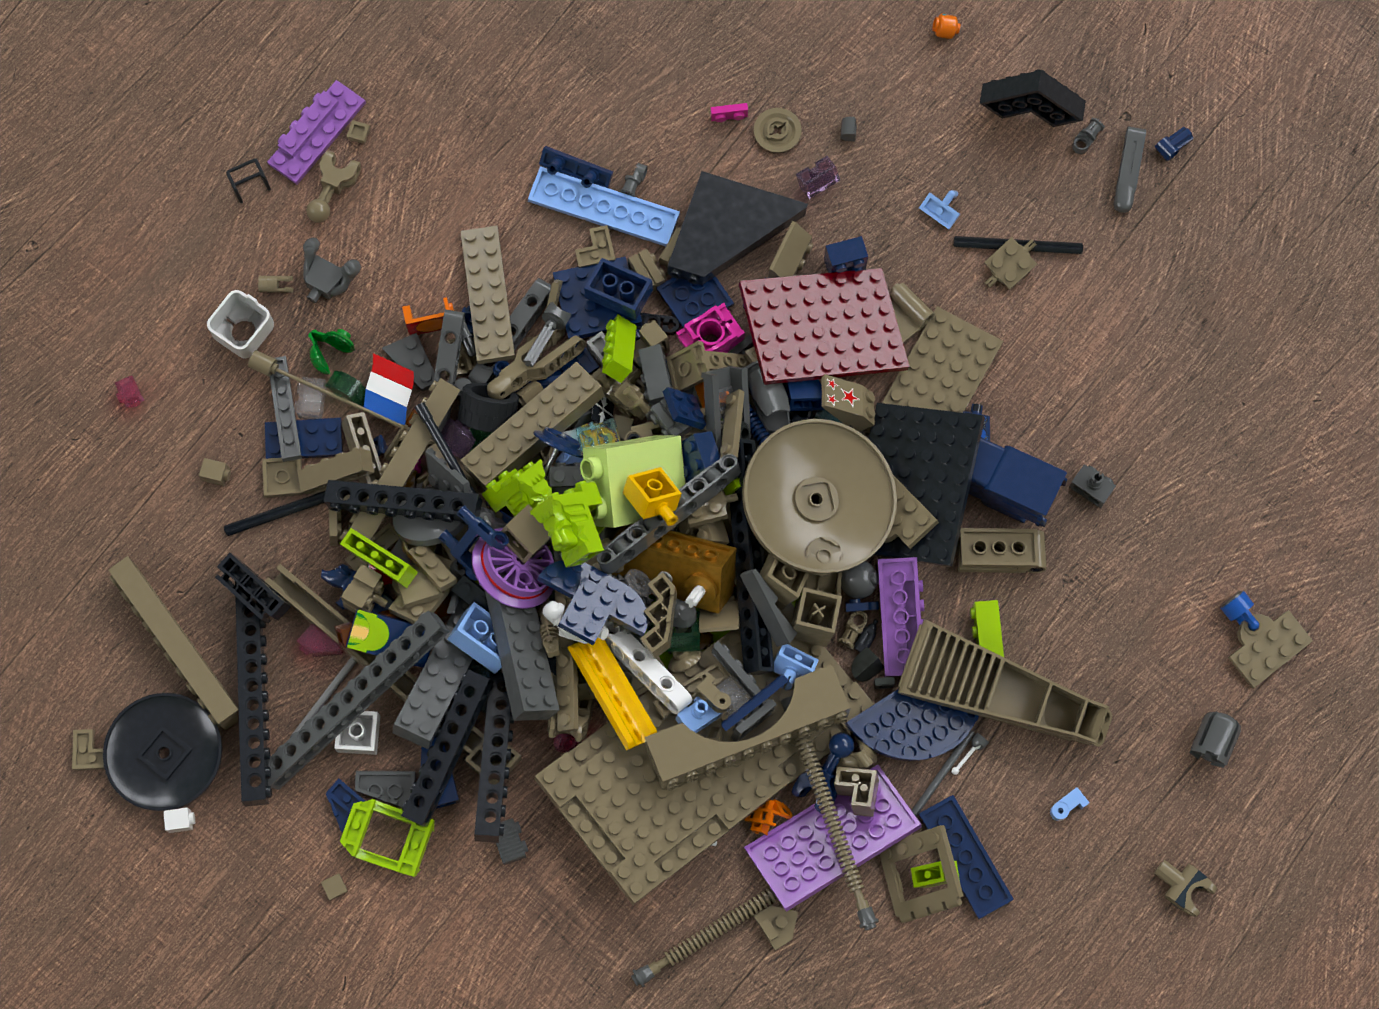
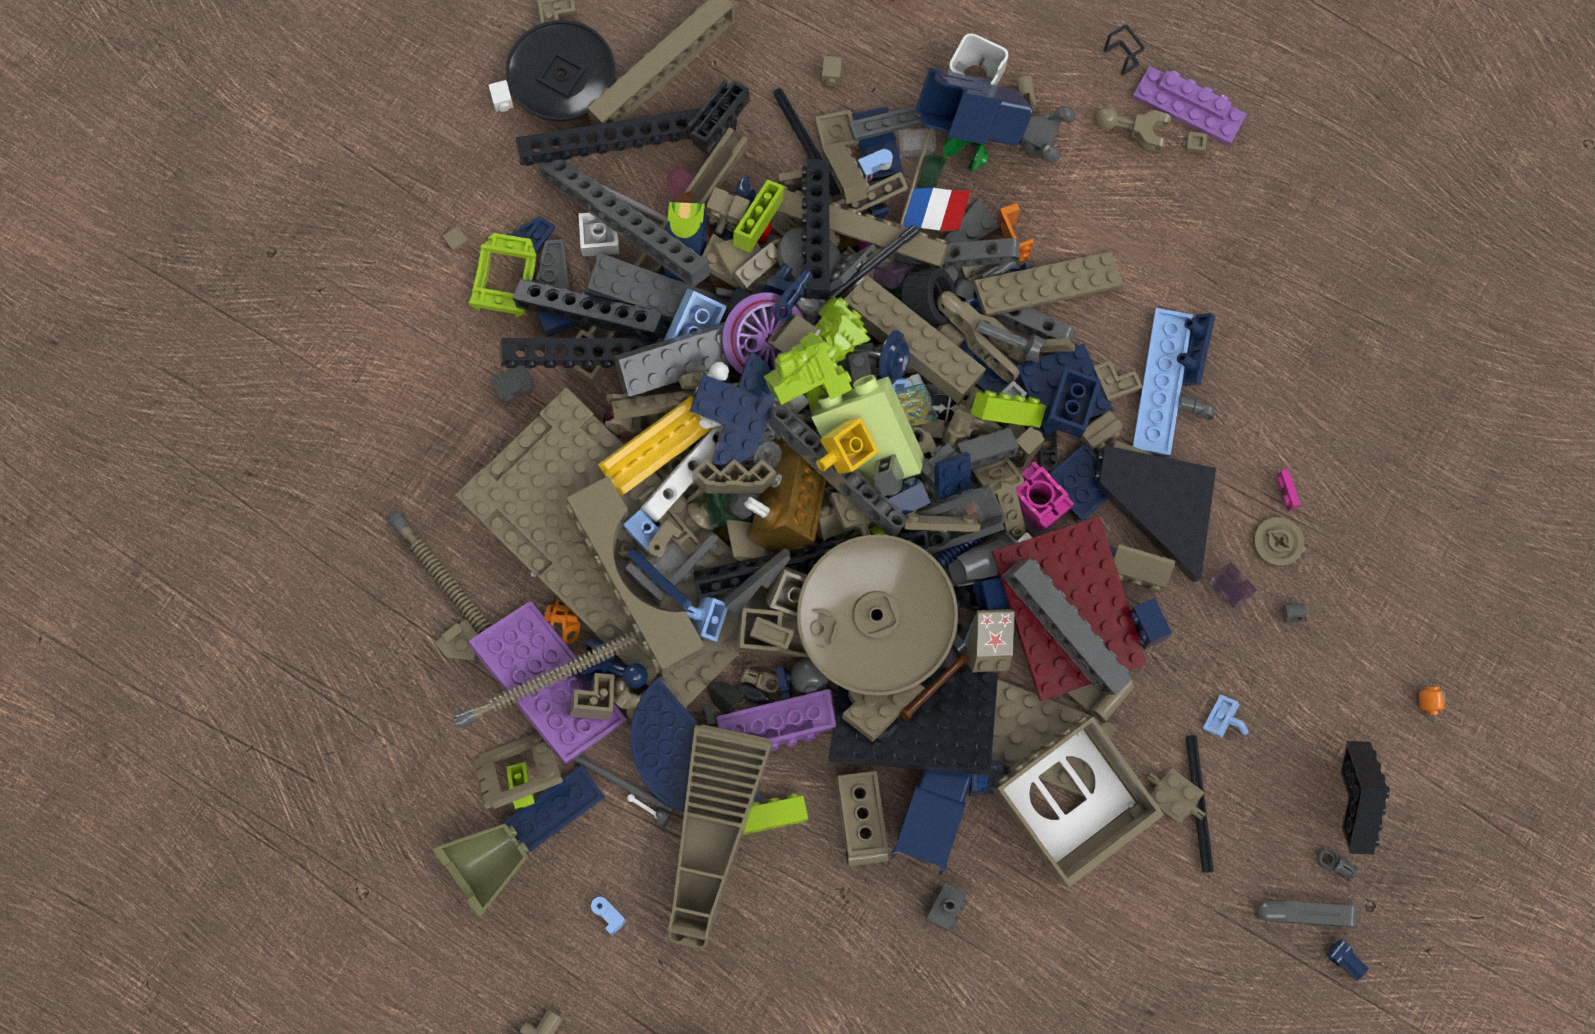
camera: 80 degrees right, 0 degrees up
(294, 332) = (972, 108): none -> dark blue piece
(327, 437) = (875, 162): none -> light blue leg
(683, 464) = (888, 476): none -> dark grey brick
(824, 600) = (771, 633): none -> dark tan tile
(847, 327) = (1067, 627): none -> dark grey brick
(913, 487) = (907, 713): none -> reddish brown bar
(1012, 916) = (483, 863): none -> olive cone
(1034, 337) = (1109, 799): none -> door

